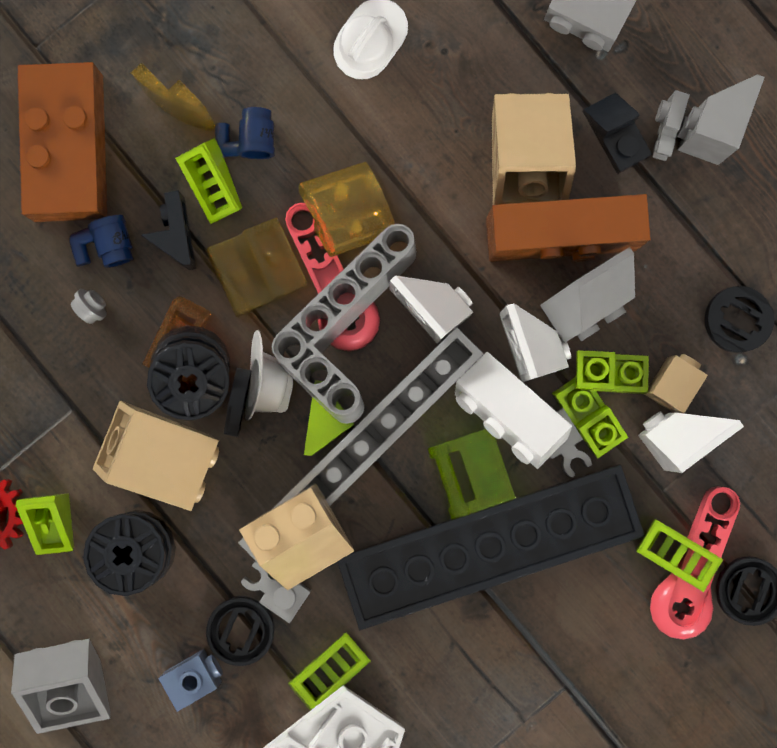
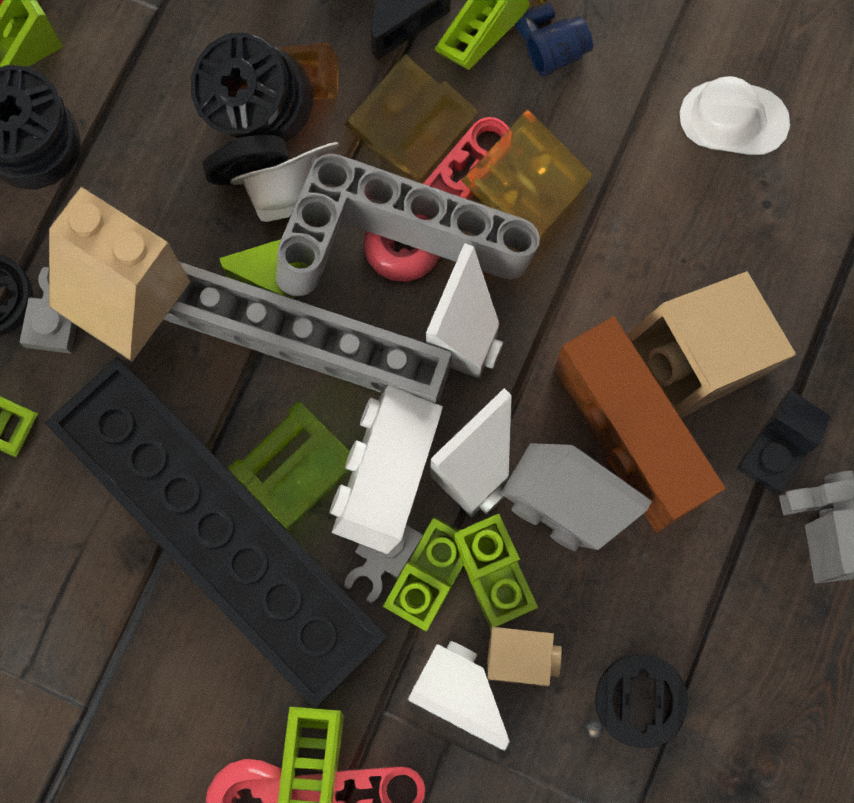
camera: 70 degrees right, 10 degrees down
(156, 456) = (141, 108): tan slope -> none

